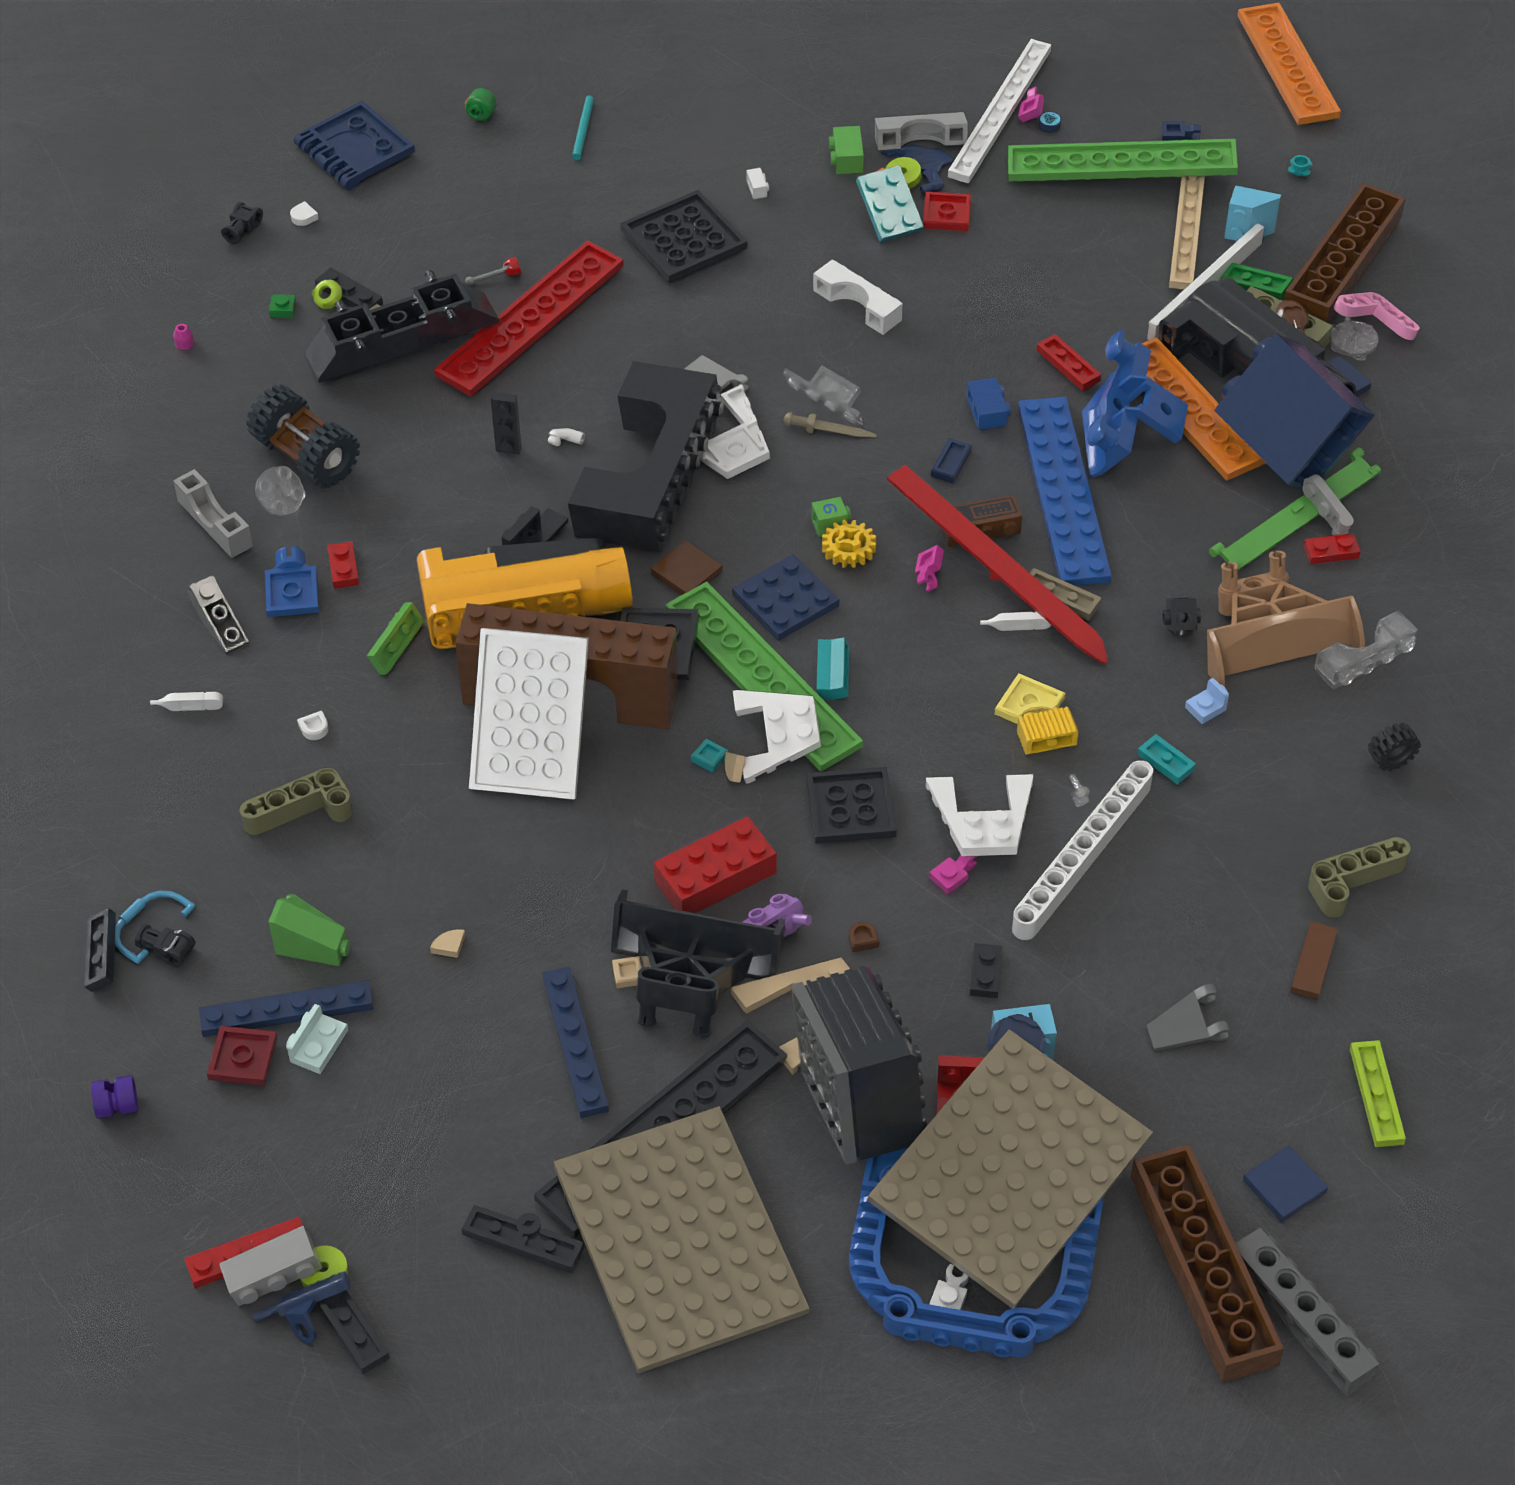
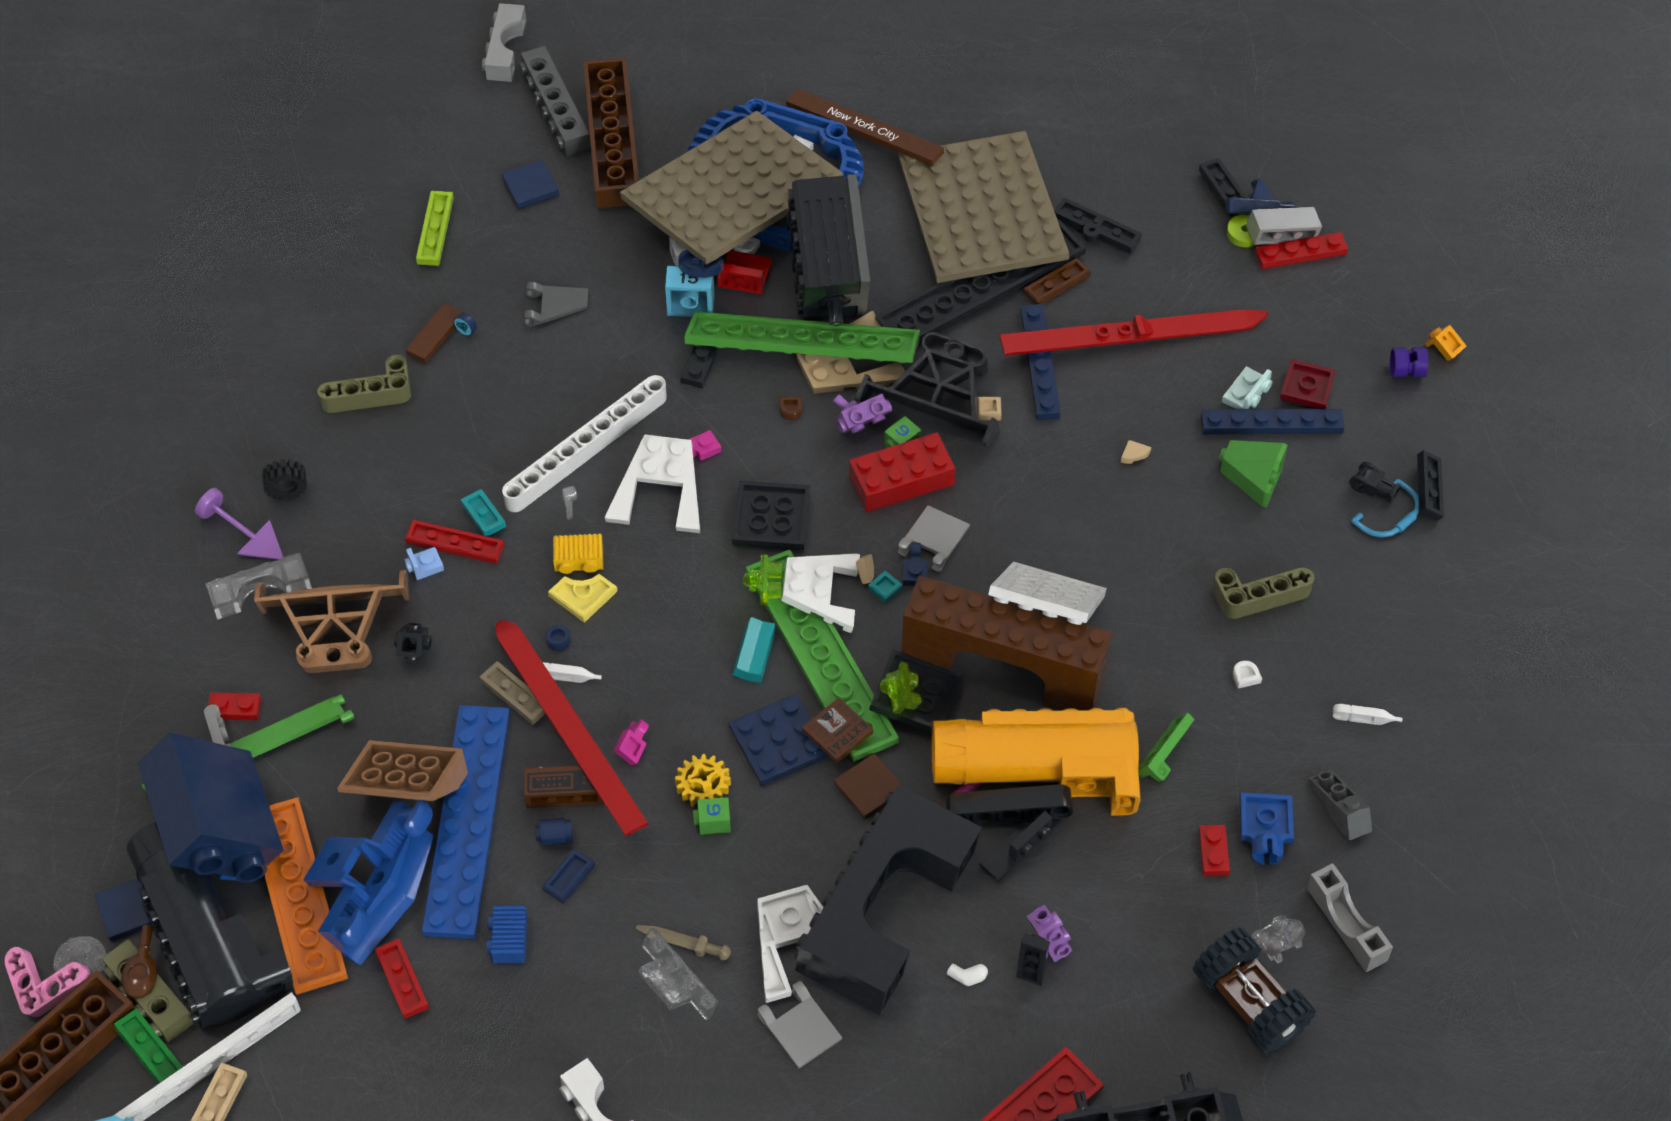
camera: 170 degrees left, 5 degrees up
(67, 1139) = (1446, 341): none -> light orange bracket
(462, 1089) = (1130, 331): none -> red piece
(493, 453) = (1049, 928): none -> medium lavender brick
(578, 1139) = (1057, 281): none -> reddish brown tile
(664, 818) = (936, 533): none -> light grey flag
(670, 616) = (899, 687): none -> clear neon green hips
(680, 776) = (914, 567): none -> dark blue plate
(724, 904) = (901, 432): none -> bright green brick
(727, 595) = (837, 730): none -> reddish brown tile
(840, 715) = (768, 569): none -> clear neon green hips
(865, 1335) = (867, 127): none -> reddish brown tile
(922, 998) = (802, 337): none -> bright green plate
(976, 483) = (554, 831): none -> dark blue brick
(1038, 656) = (558, 637): none -> dark blue tile
(1131, 477) = (405, 771): none -> medium nougat slope
(1186, 731) = (455, 541): none -> red tile
(1281, 968) = (465, 324): none -> dark blue tile
(1389, 697) = (262, 544): none -> medium lavender piece
(1407, 1363) = (508, 24): none -> light grey arch

